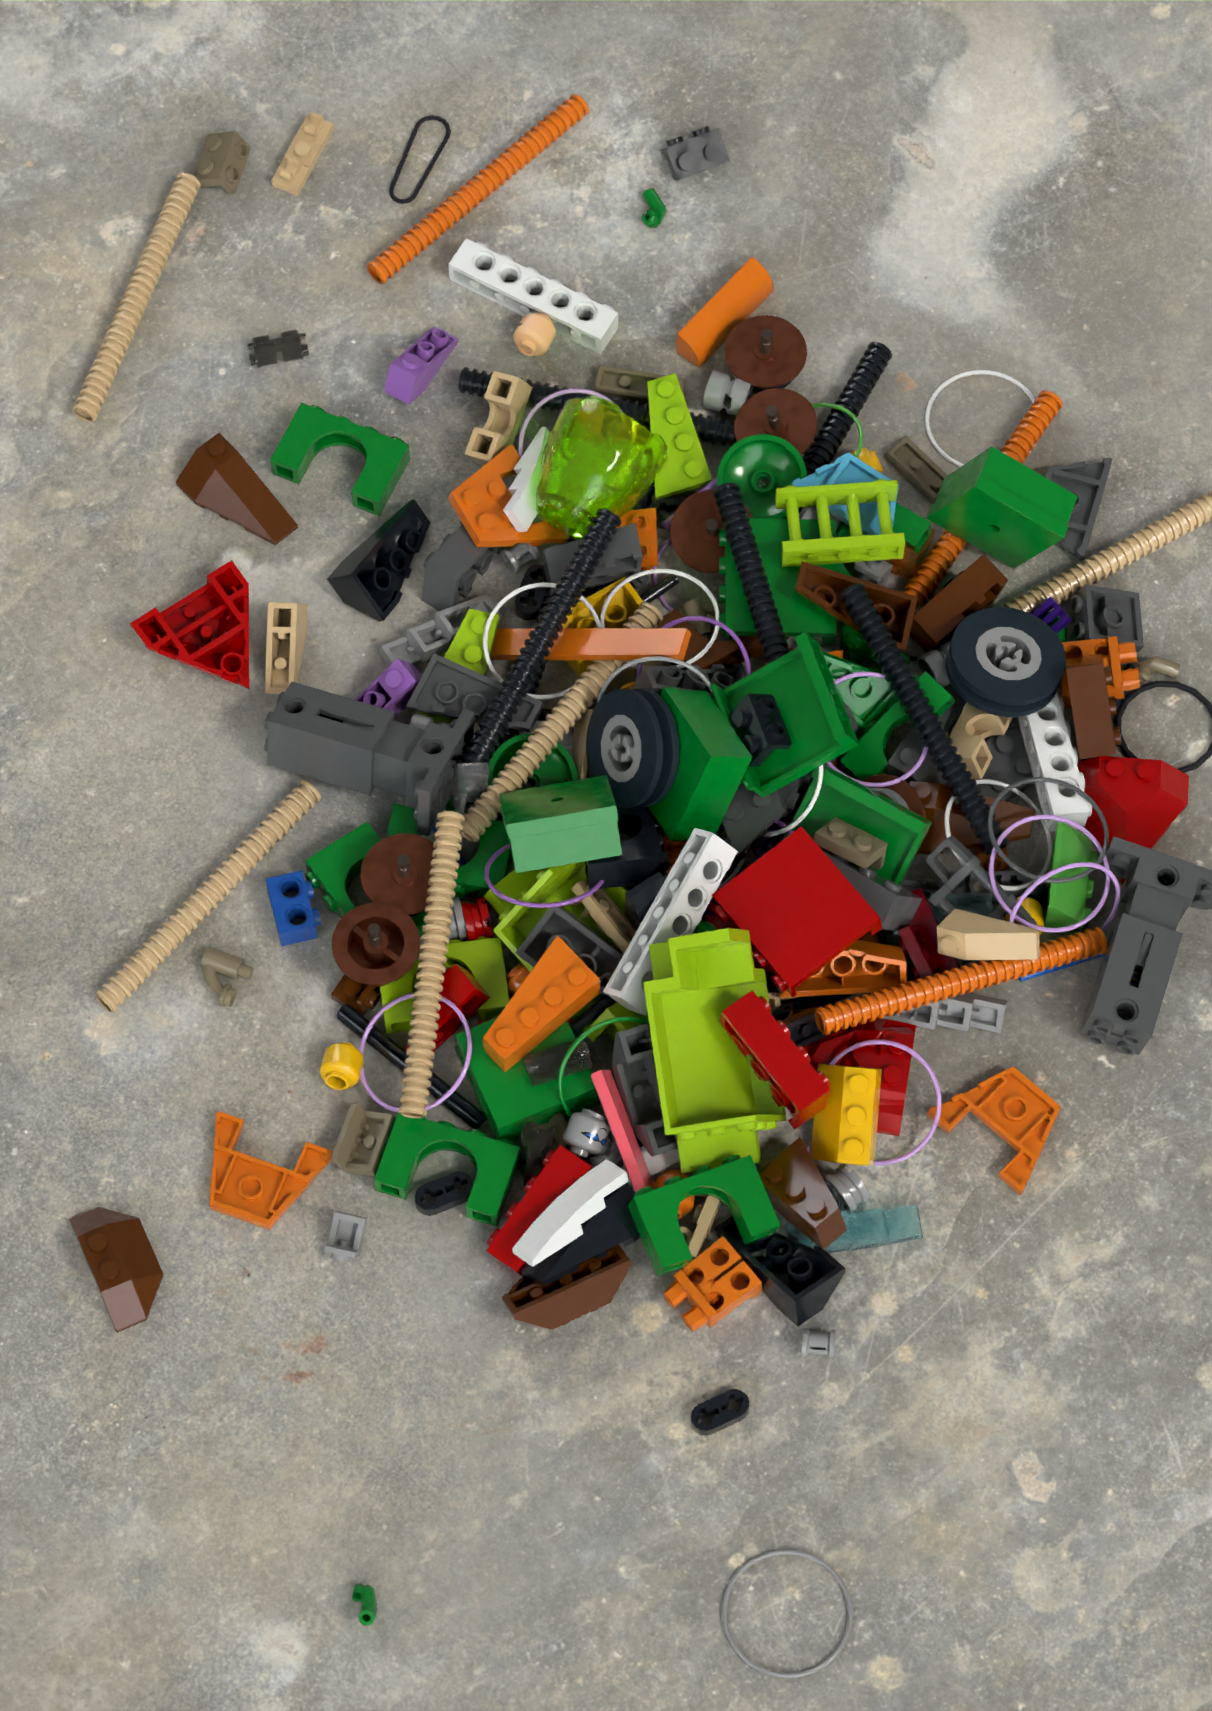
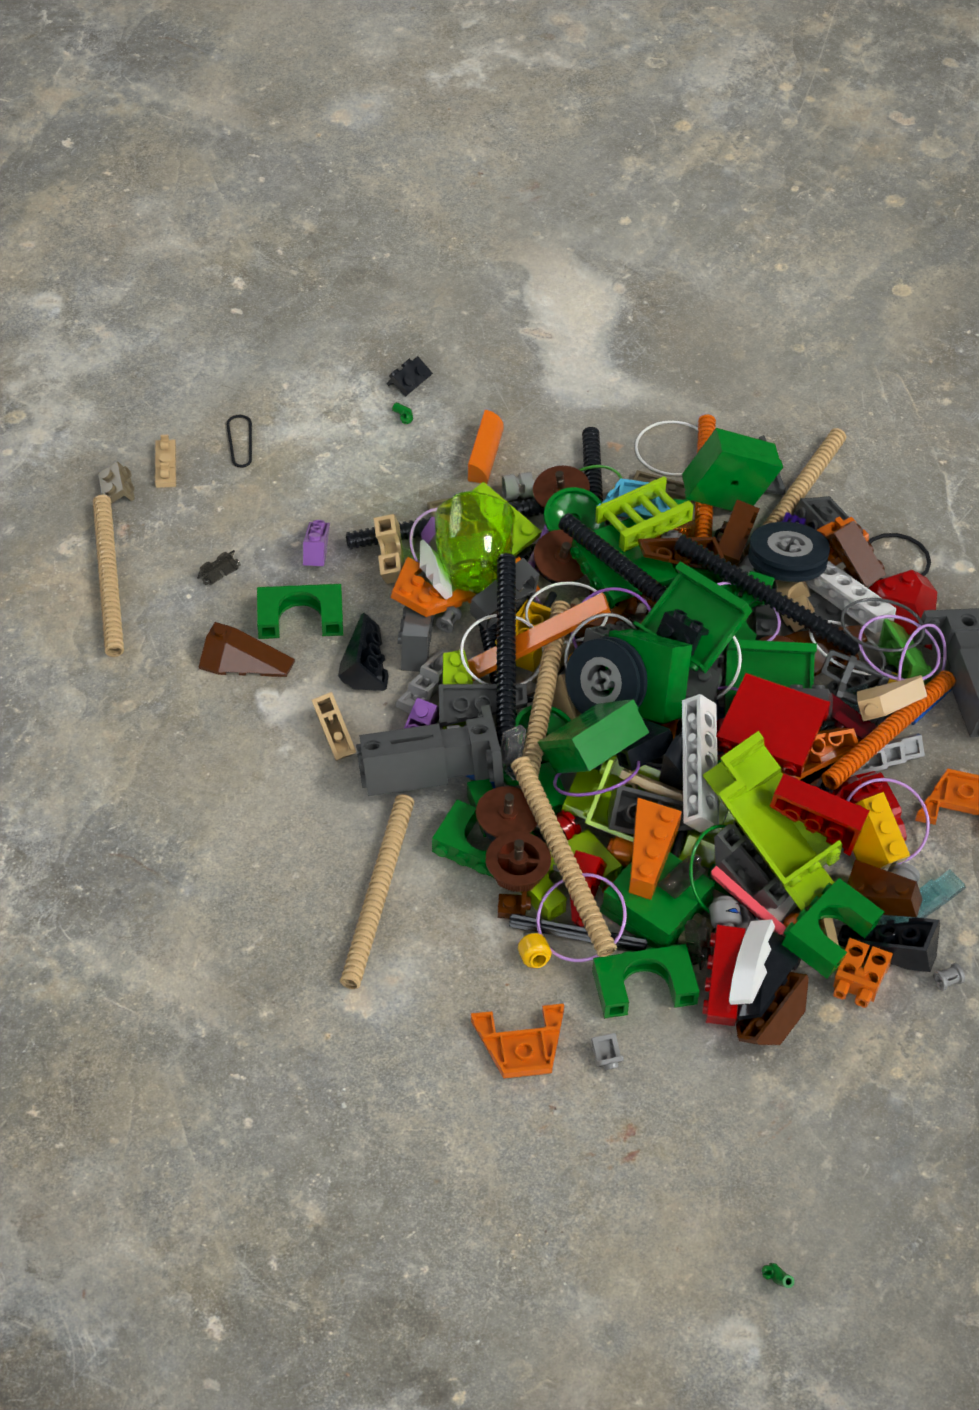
camera: 30 degrees left, 15 degrees down
(120, 1263) = (464, 1140): reddish brown wedge -> none
(205, 627) = (277, 732): red wedge -> none
(220, 962) = (410, 926): dark tan plant -> none
(289, 908) = (438, 872): blue brick -> none
(362, 1140) = (580, 989): dark tan bracket -> none
(441, 1186) = (655, 1001): black beam -> none
(478, 188) = (289, 441): orange piece -> none
(516, 296) = (362, 481): white brick -> none
(534, 334) = (377, 500): light nougat head -> none
(537, 593) = (473, 636): black beam -> none
(716, 1405) = (913, 1044): black beam -> none
(765, 352) = (527, 454): copper piece -> none
(852, 844) = (781, 675): dark tan bracket -> none
(1154, 665) = (871, 527): dark tan arm -> none

